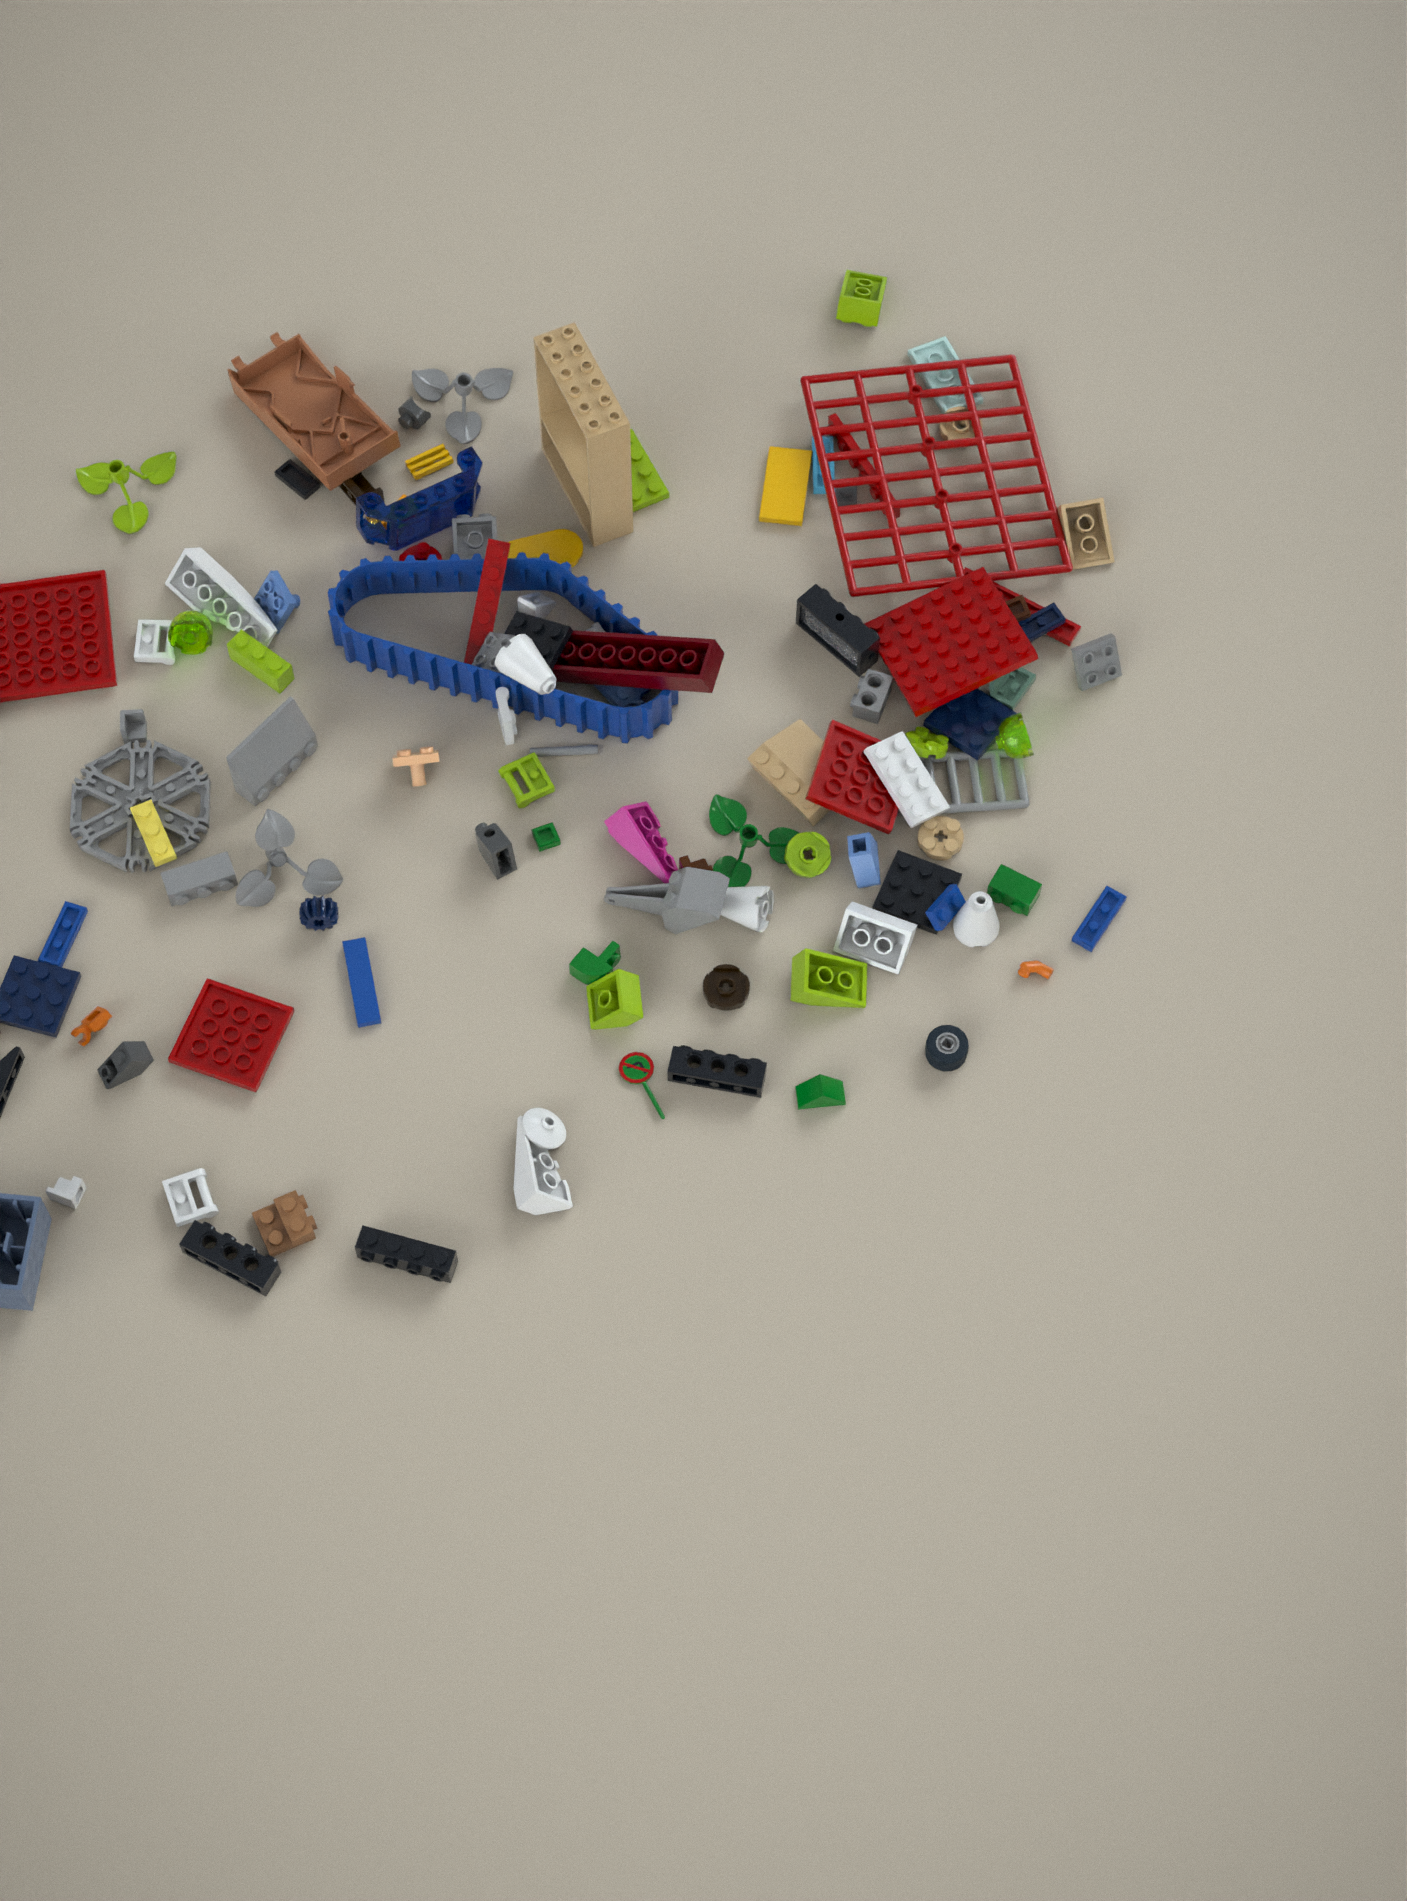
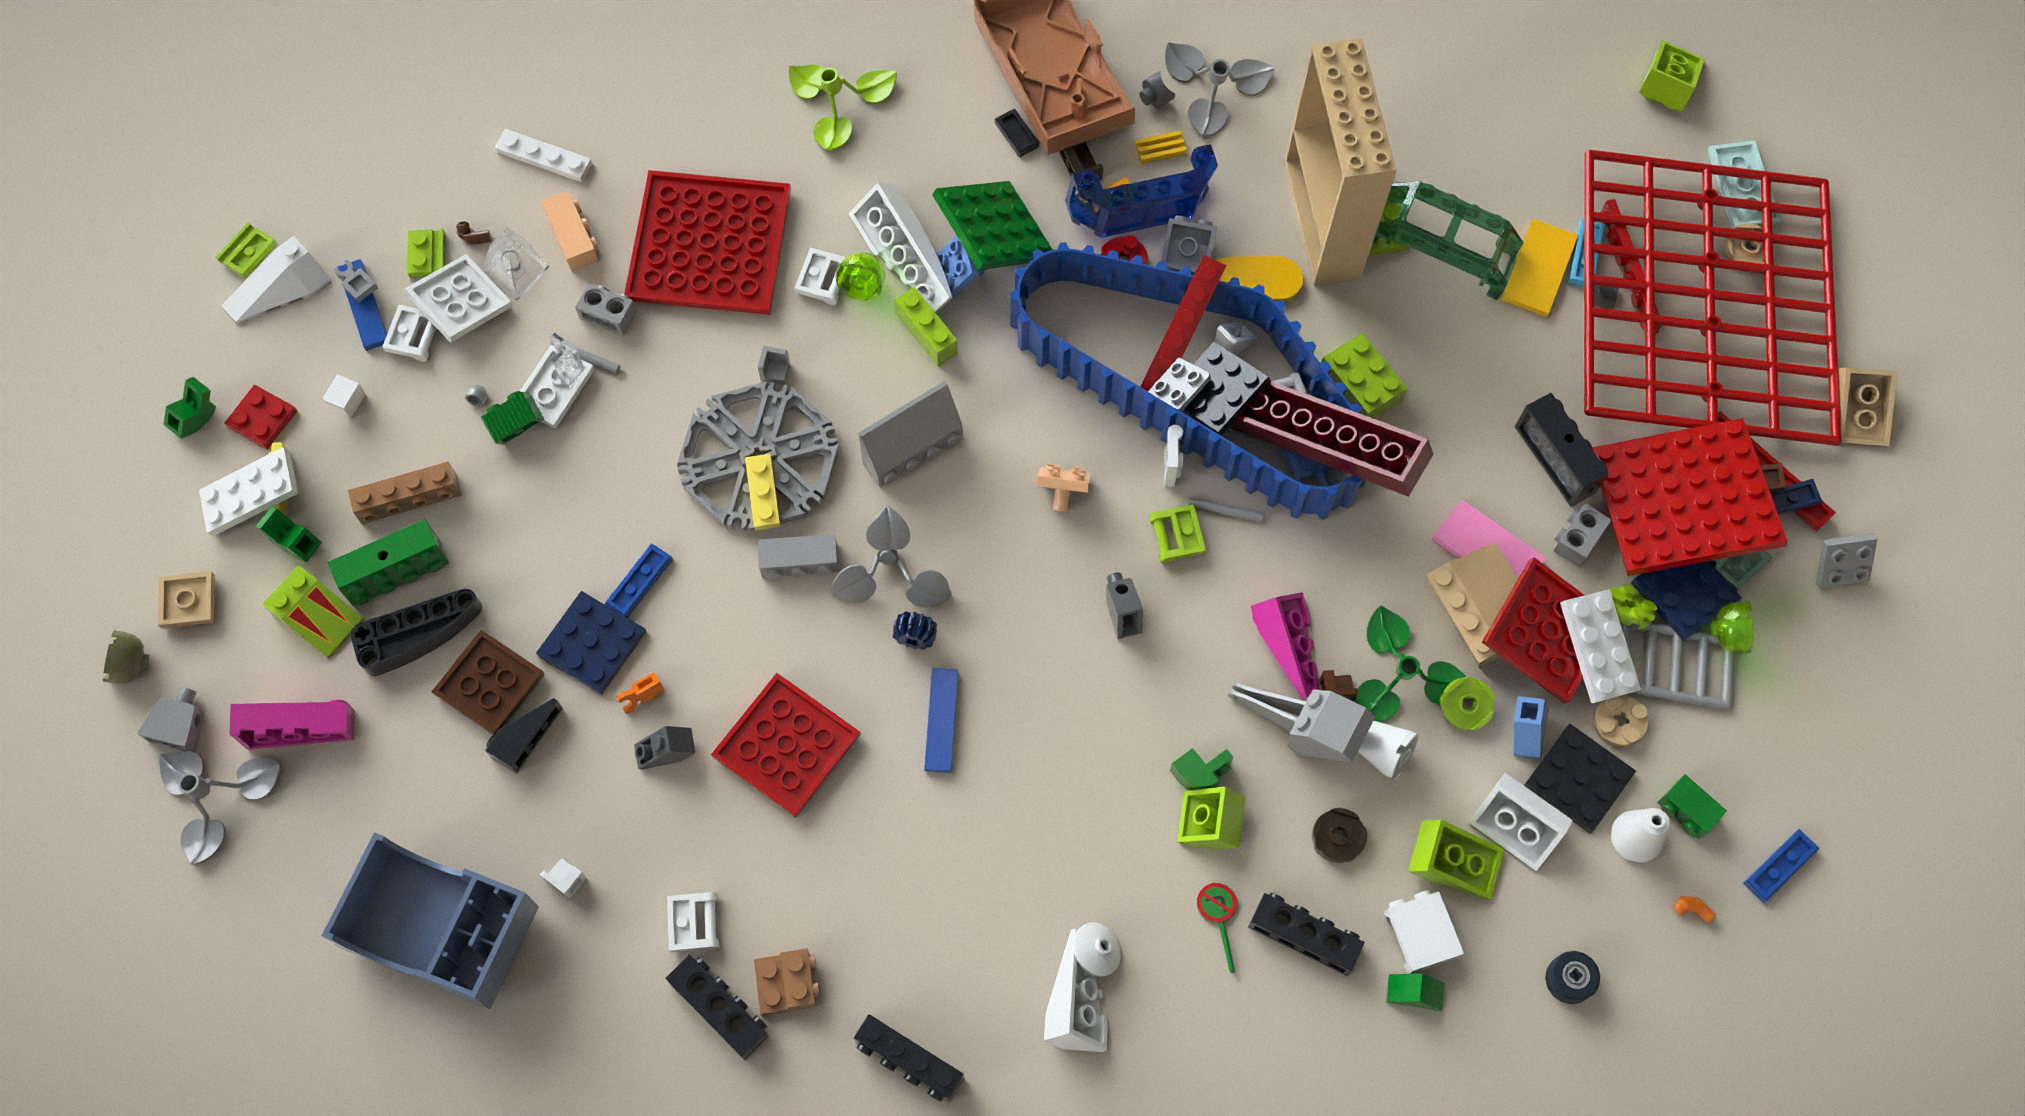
camera: 15 degrees right, 5 degrees up
(295, 559) = (991, 223): none -> green plate
(526, 665) = (1210, 411): white cone -> none
(546, 836) = (1182, 604): green tile -> none
(657, 609) = (1366, 376): none -> lime brick
(696, 486) = (1444, 247): none -> clear green windscreen
(777, 714) = (1471, 530): none -> bright pink tile
(815, 1043) = (1424, 931): none -> white panel
(945, 907) = (1609, 808): blue plate -> none

